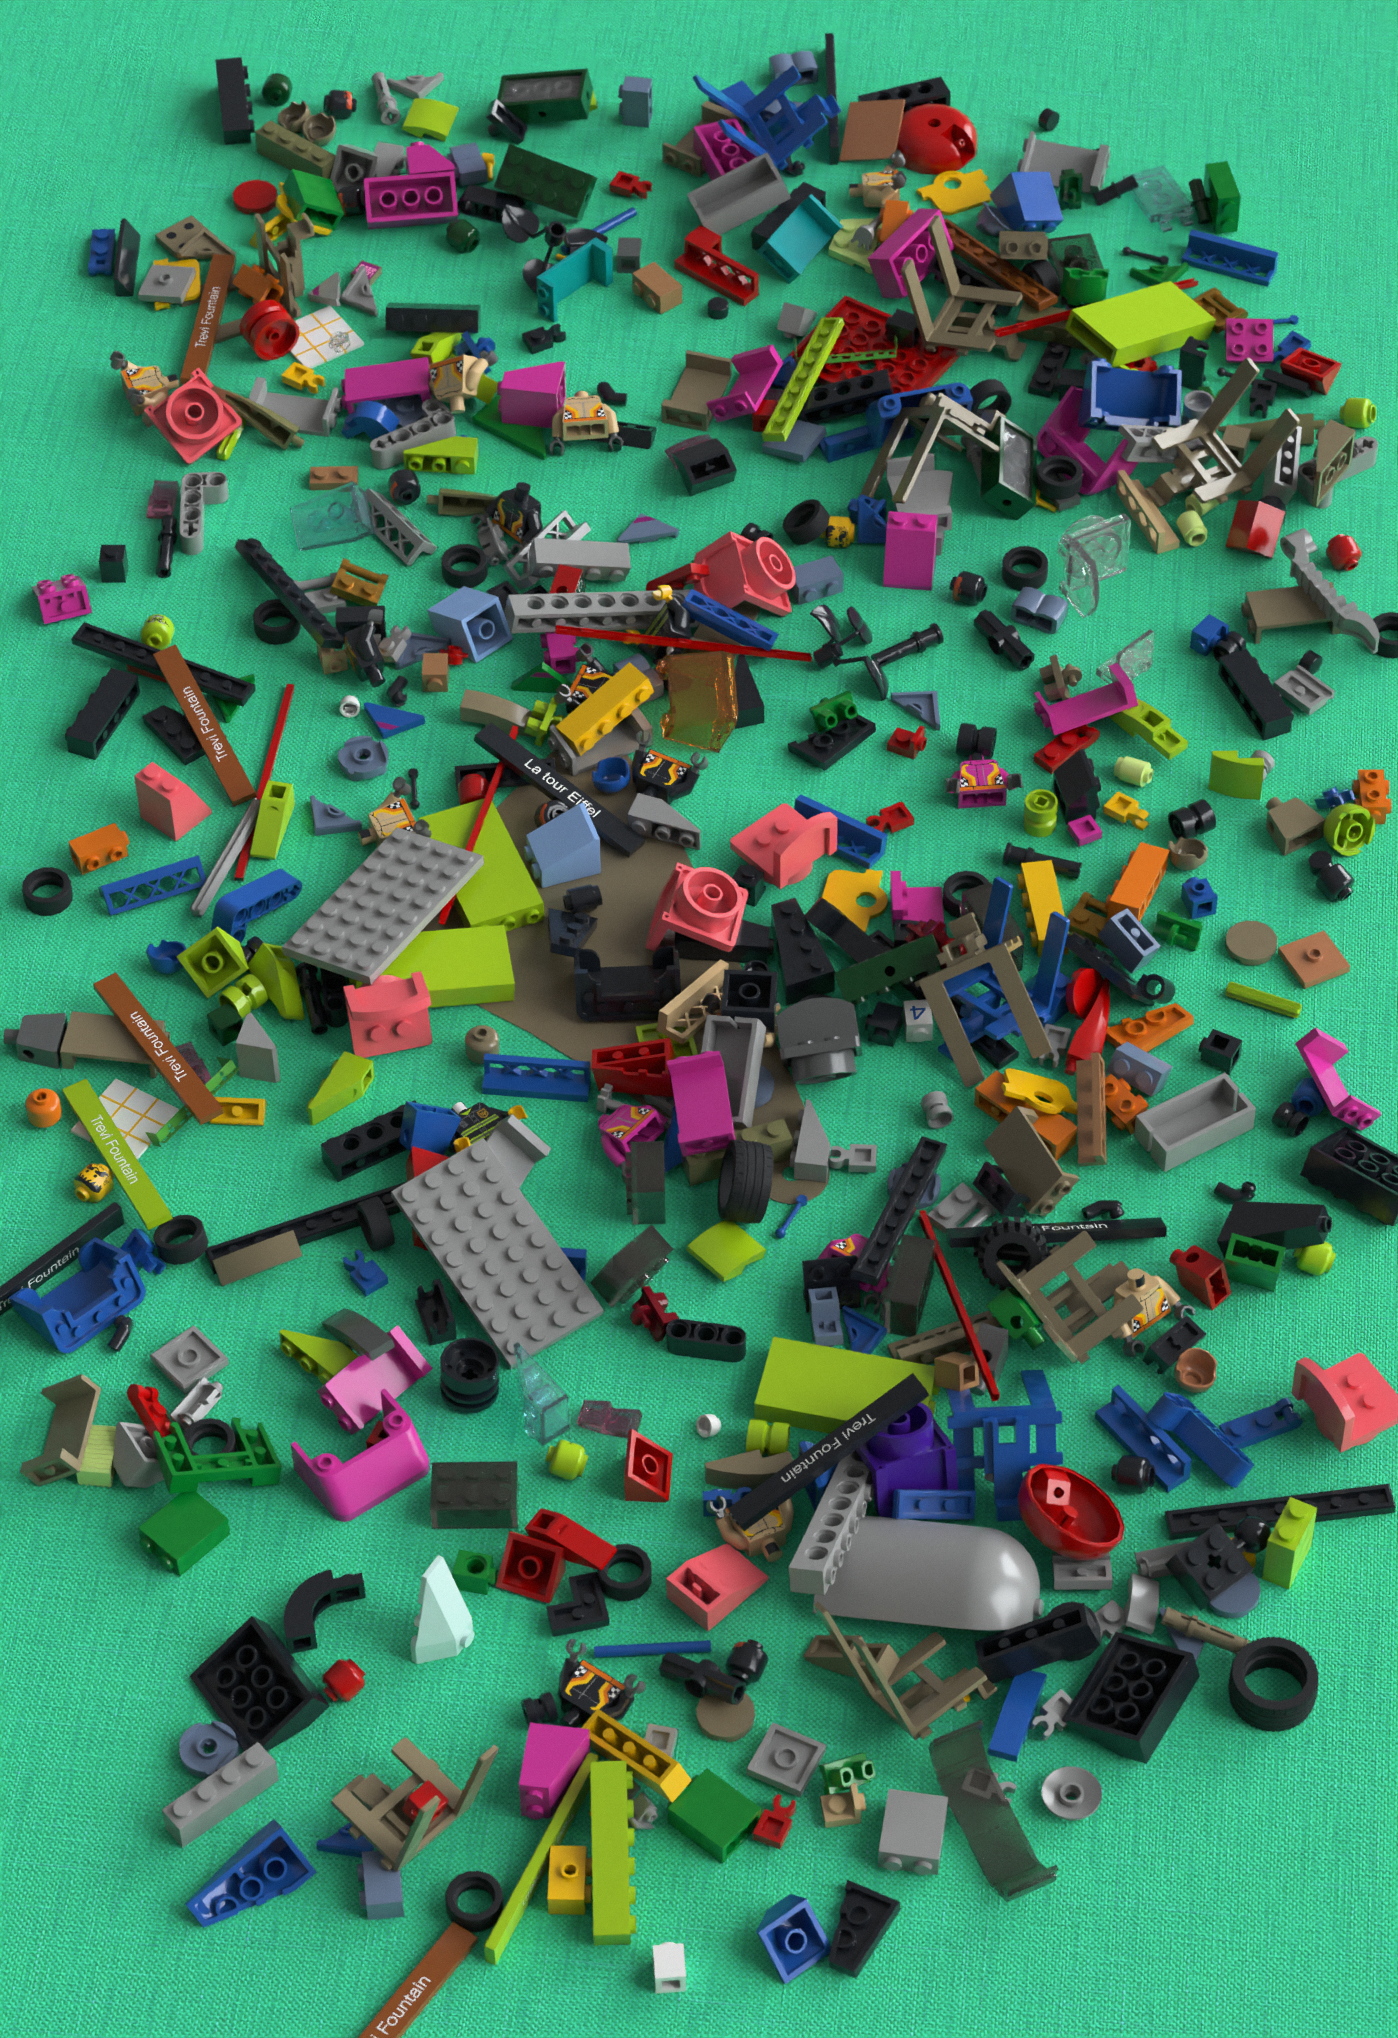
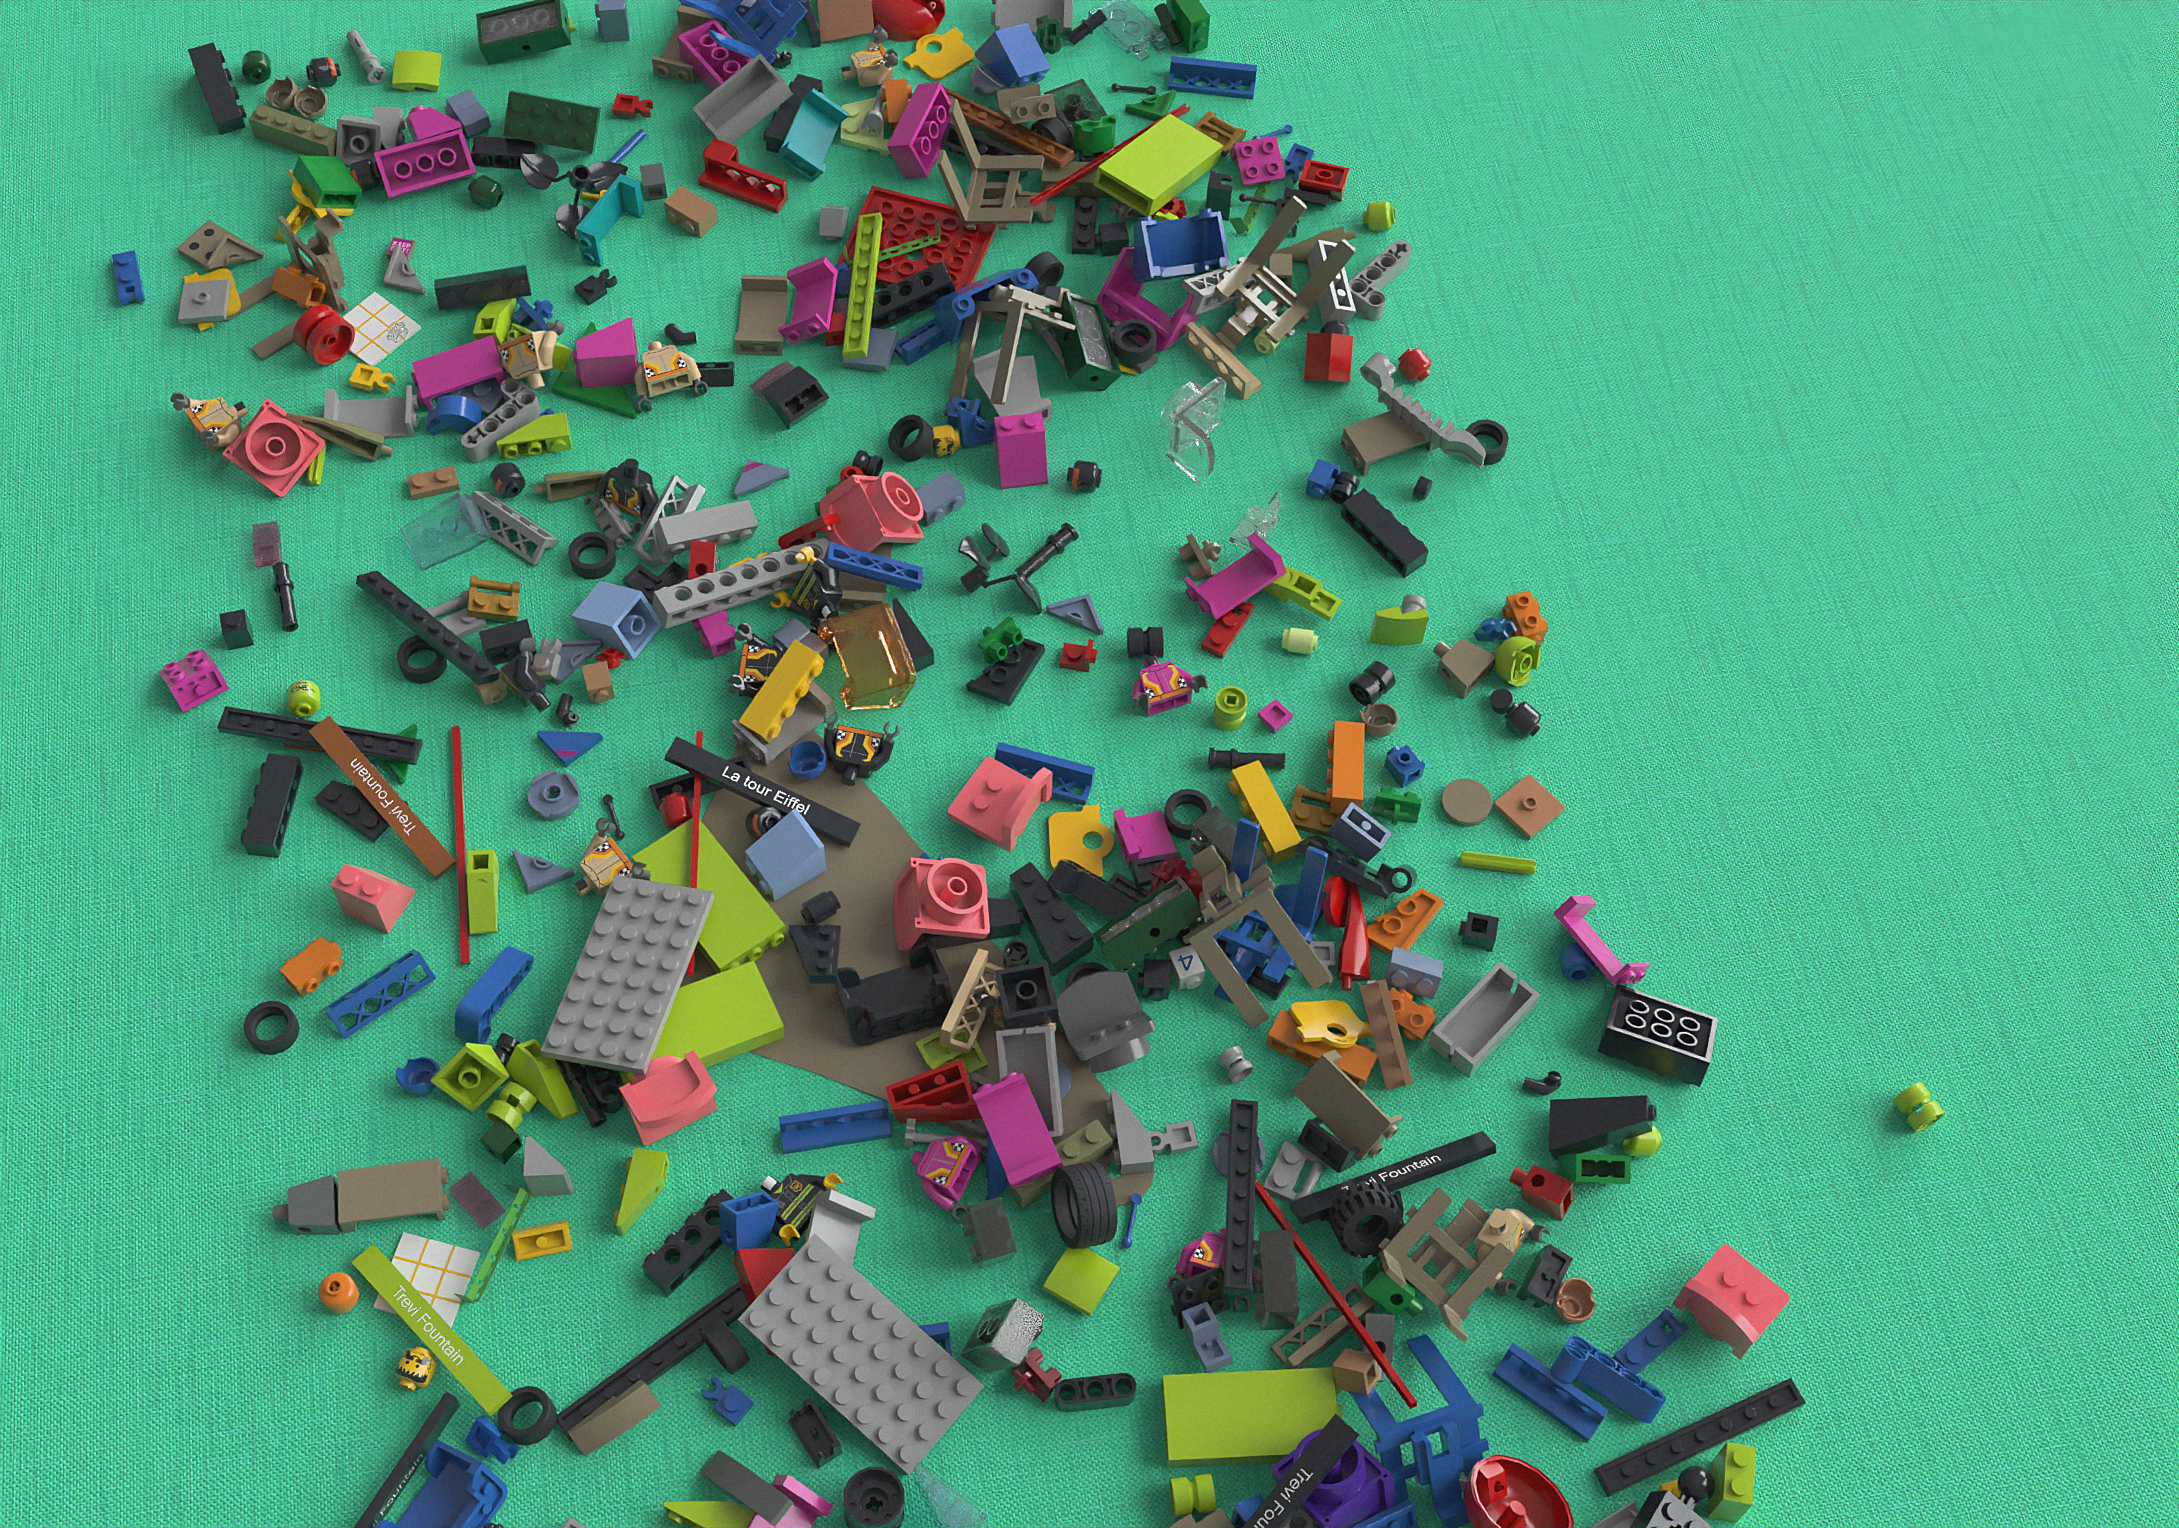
camera: 20 degrees left, 10 degrees up
(126, 260) = (155, 282): black slope -> none
(158, 1049) = (442, 1195): dark orange tile -> none
(196, 491) = (299, 529): light grey beam -> none
(209, 315) = (257, 331): dark orange tile -> none
(226, 859) = (447, 945): light grey axle -> none
(255, 197) = (266, 187): red tile -> none
(327, 292) = (369, 278): light grey tile -> none
(349, 706) = (522, 738): white hinge -> none
(417, 85) = (392, 37): light grey tile -> none
(479, 1041) = (770, 1102): dark tan head -> none
(488, 709) = (674, 715): dark tan slope -> none
(490, 163) = (487, 105): yellow hand -> none
(505, 122) = (492, 62): black tile -> none
(540, 679) = (707, 667): green tile -> none
(545, 712) = (721, 722): lime hips -> none
(604, 1419) = (1026, 1511): slope -> none
(660, 821) = (867, 800): light grey slope -> none
(682, 643) = (834, 602): red piece -> none
(708, 1425) = (1121, 1489): white hinge -> none
(718, 308) = (754, 221): black piece -> none
(751, 878) = (978, 848): black brick -> none
(862, 1332) = (1243, 1340): blue tile -> none
(892, 817) = (1091, 744): red plate -> none
(904, 327) = (940, 210): black brick -> none
(1004, 639) = (1134, 524): black piece -> none
(1025, 555) = (1129, 428): black tyre -> none
(1039, 610) = (1157, 485): sand blue brick -> none
(1077, 787) = (1256, 674): black slope -> none
(1101, 1207) = (1425, 1132): black arm -> none
(1123, 808) = (1303, 683): yellow plate -> none
(1133, 1474) = (1554, 1436): black head -> none
(1192, 528) = (1269, 367): yellowish green brick -> none
(1195, 405) = (1238, 242): light grey wheel -> none
(1289, 1118) = (1567, 990): black wheel -> none
(1304, 690) = (1426, 518): light grey plate -> none
(1331, 457) = (1378, 273): dark tan slope -> none

